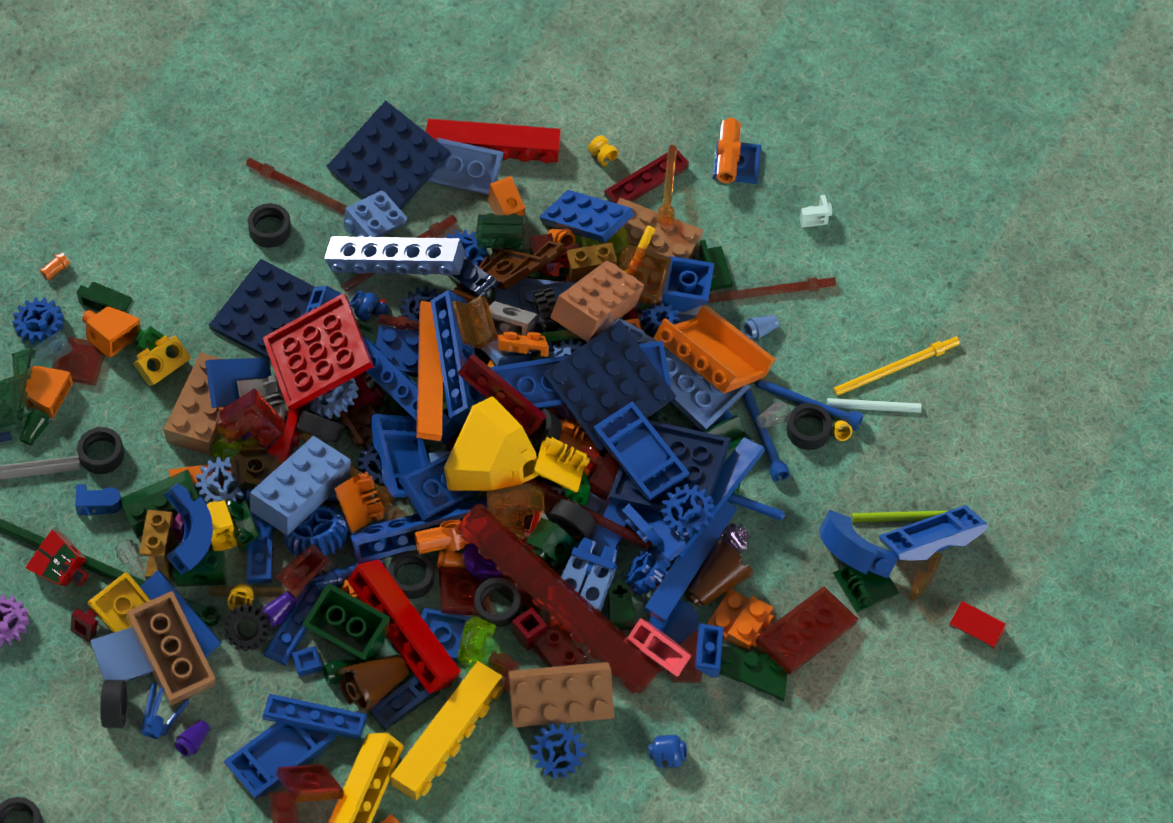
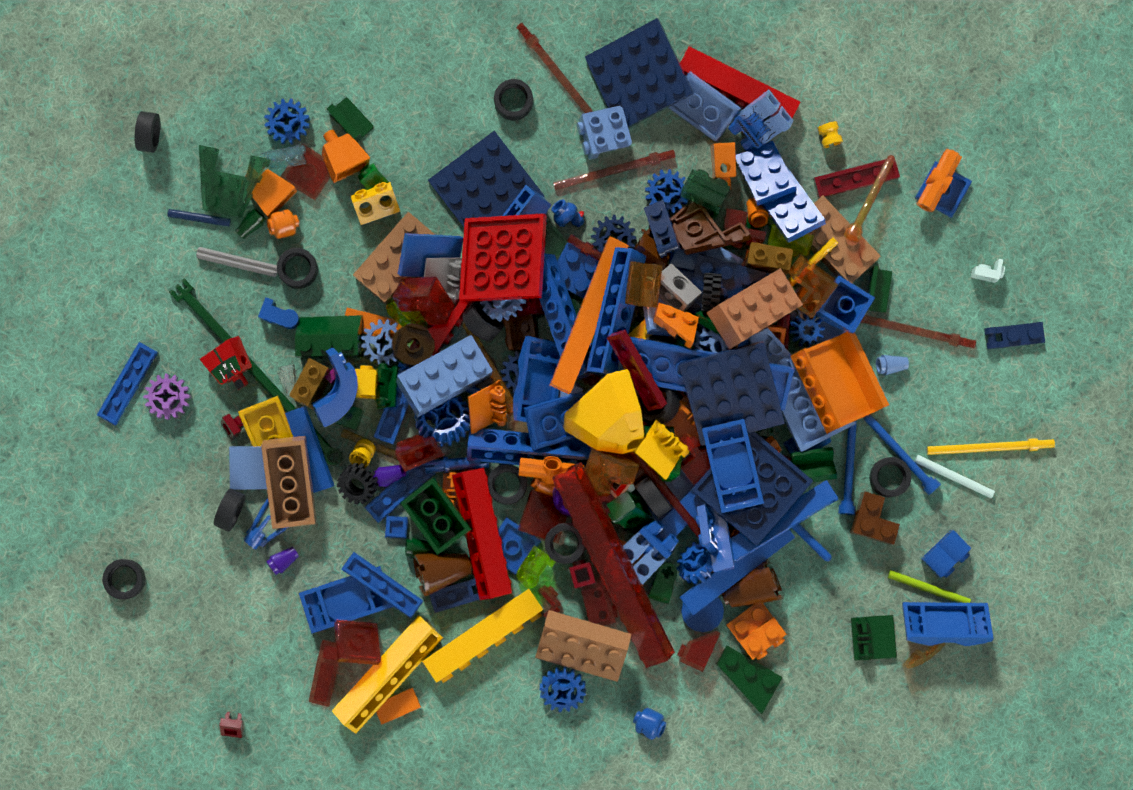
camera: 20 degrees right, 25 degrees up
(55, 266) = (319, 70): orange pin -> none
(69, 414) = (282, 224): none -> orange head
(395, 255) = (565, 151): medium blue brick -> none
(523, 161) = (761, 121): none -> hips
(554, 200) = (765, 173): none -> plate
(659, 647) = (678, 636): coral slope -> none
(682, 502) = (740, 532): blue gear -> none
(709, 649) = (718, 653): blue slope -> none
(736, 537) = (783, 559): clear purple gear -> none
(774, 415) = (865, 456): clear cone -> none
(806, 630) = (805, 665): clear red plate -> none
(809, 474) = (868, 521): none -> reddish brown brick
(840, 433) = (916, 491): yellow hinge -> none
(852, 549) = (871, 609): blue arch -> none
(870, 261) = (1015, 335): none -> dark blue plate
(901, 475) = (946, 554): none -> blue brick
(978, 624) = (946, 714): red hinge -> none

